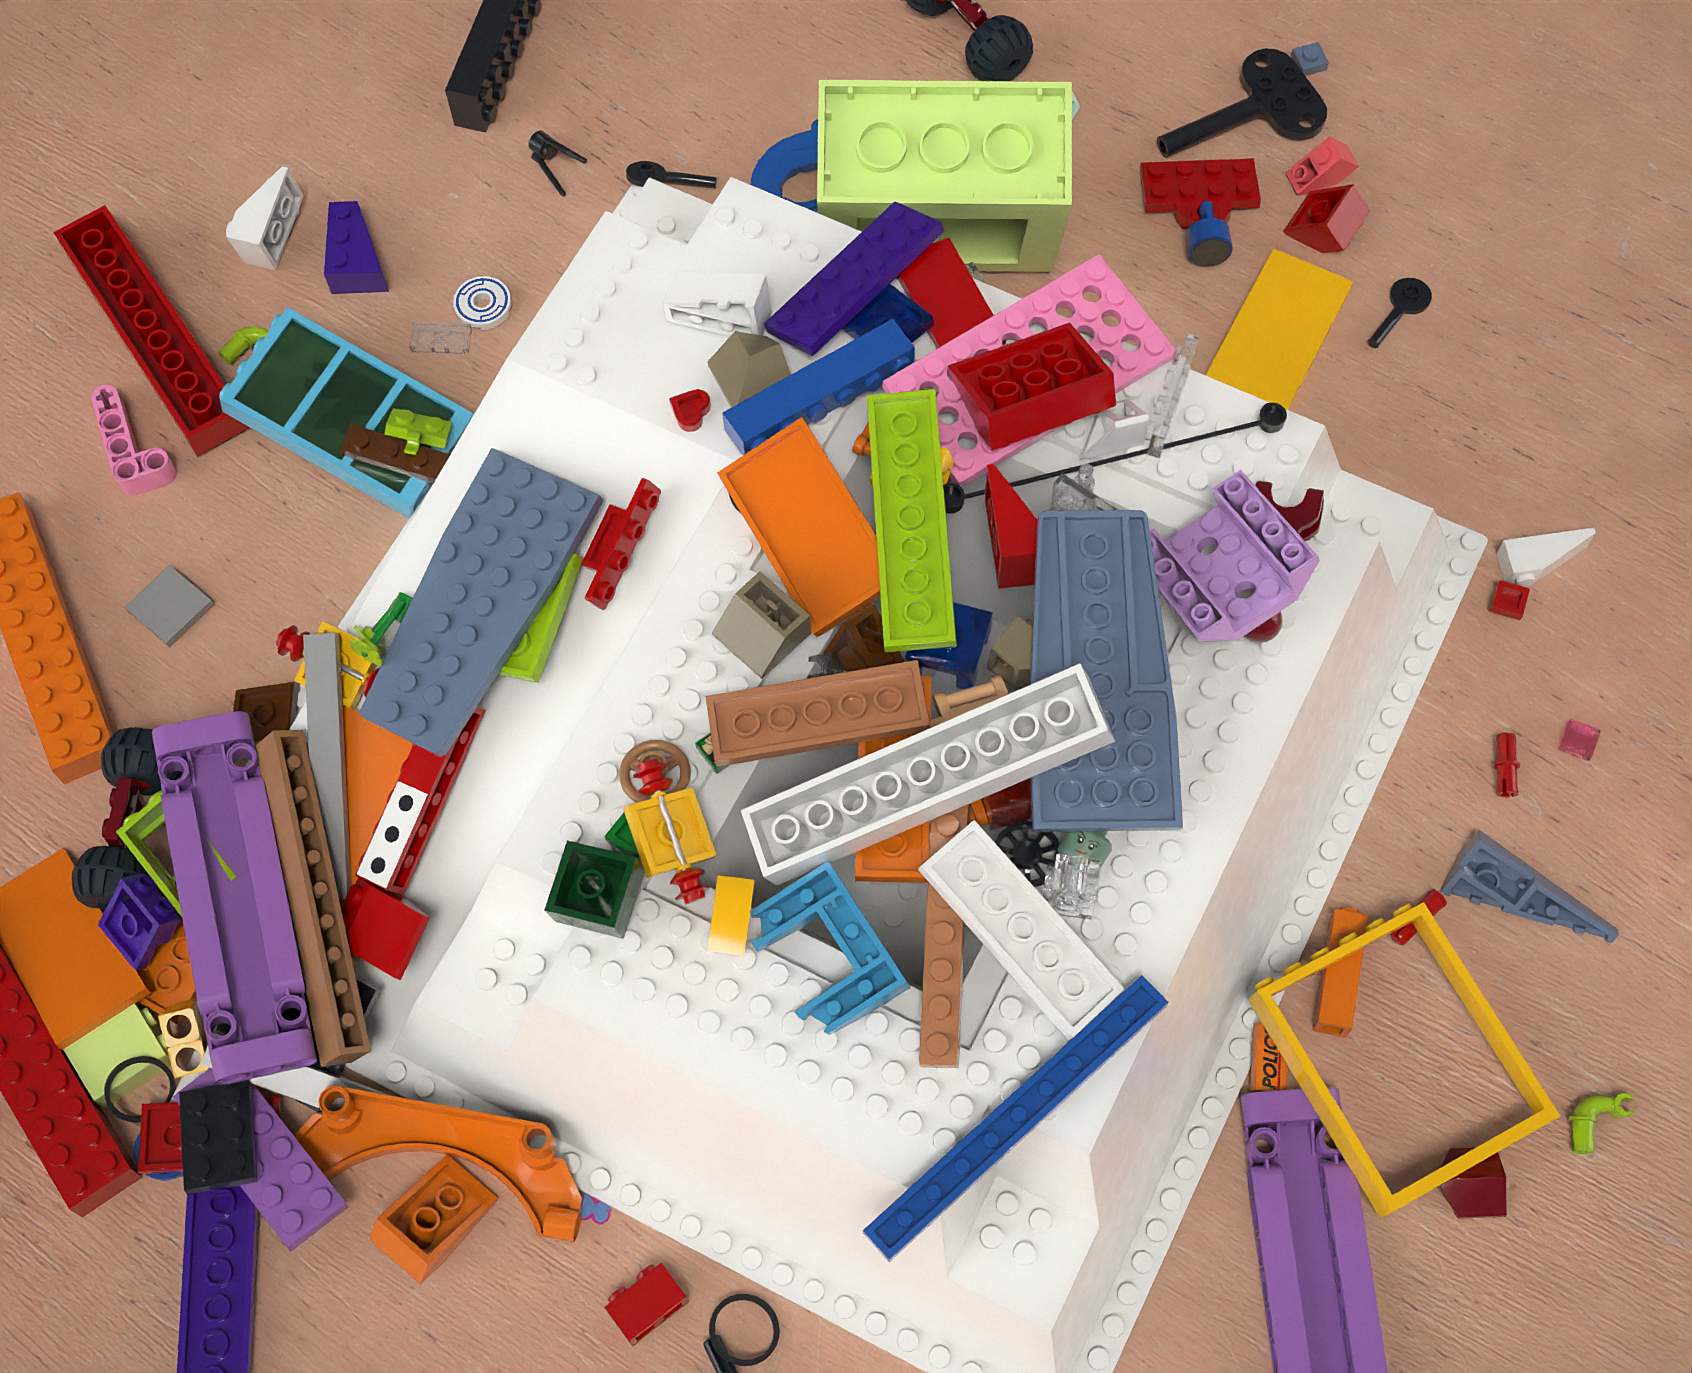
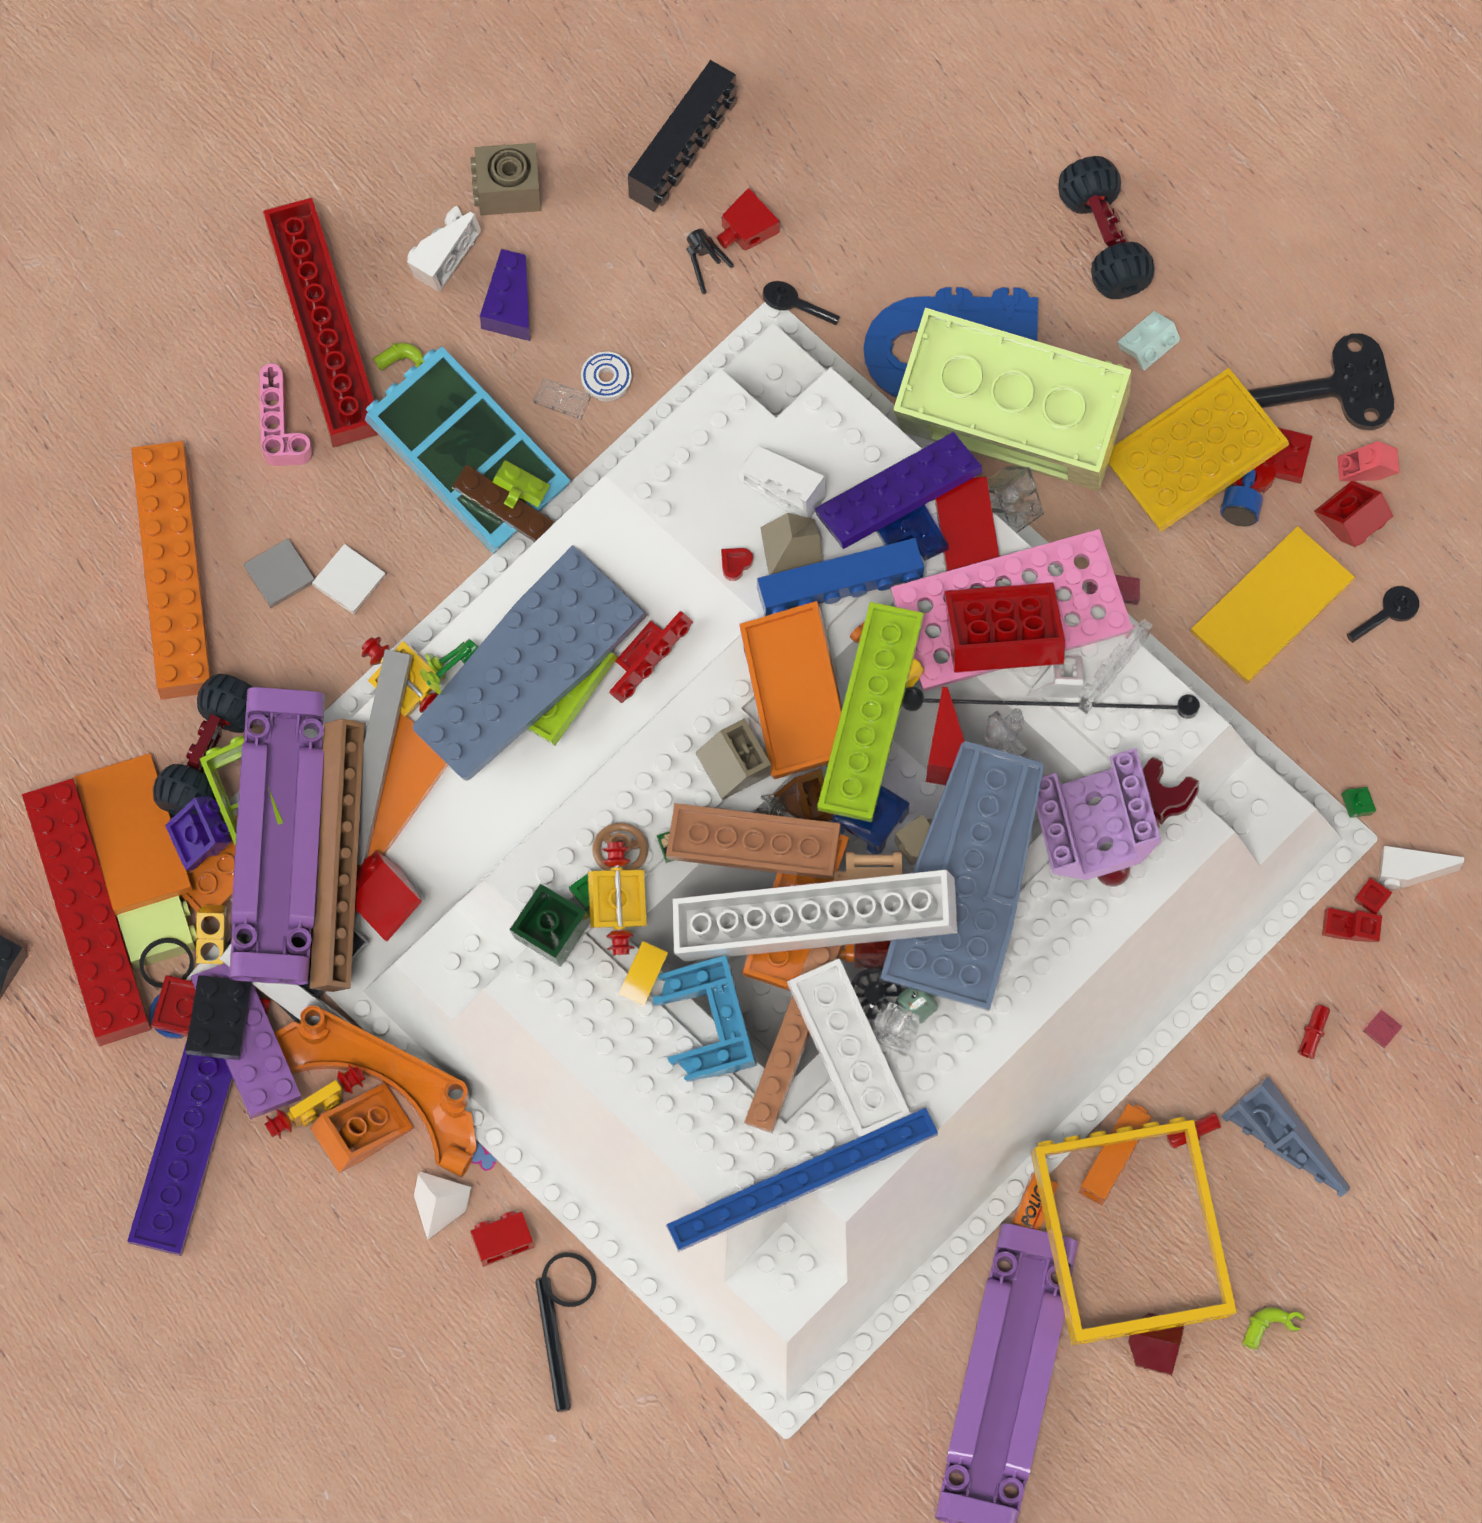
camera: 15 degrees right, 5 degrees up
(251, 590) = (348, 579): none -> white tile
(268, 707) = (340, 688): reddish brown tile -> none
(315, 135) = (505, 179): none -> dark tan brick
(360, 1216) = (324, 1099): none -> plate
(413, 812) = (430, 815): red brick -> none
(555, 1281) = (439, 1202): none -> white slope
(589, 112) = (748, 222): none -> red torso
(1144, 197) = (1195, 449): none -> yellow plate
(1310, 58) = (1400, 353): sand blue plate -> none
(1453, 505) = (1358, 802): none -> green plate
(1498, 639) = (1352, 926): none -> red slope

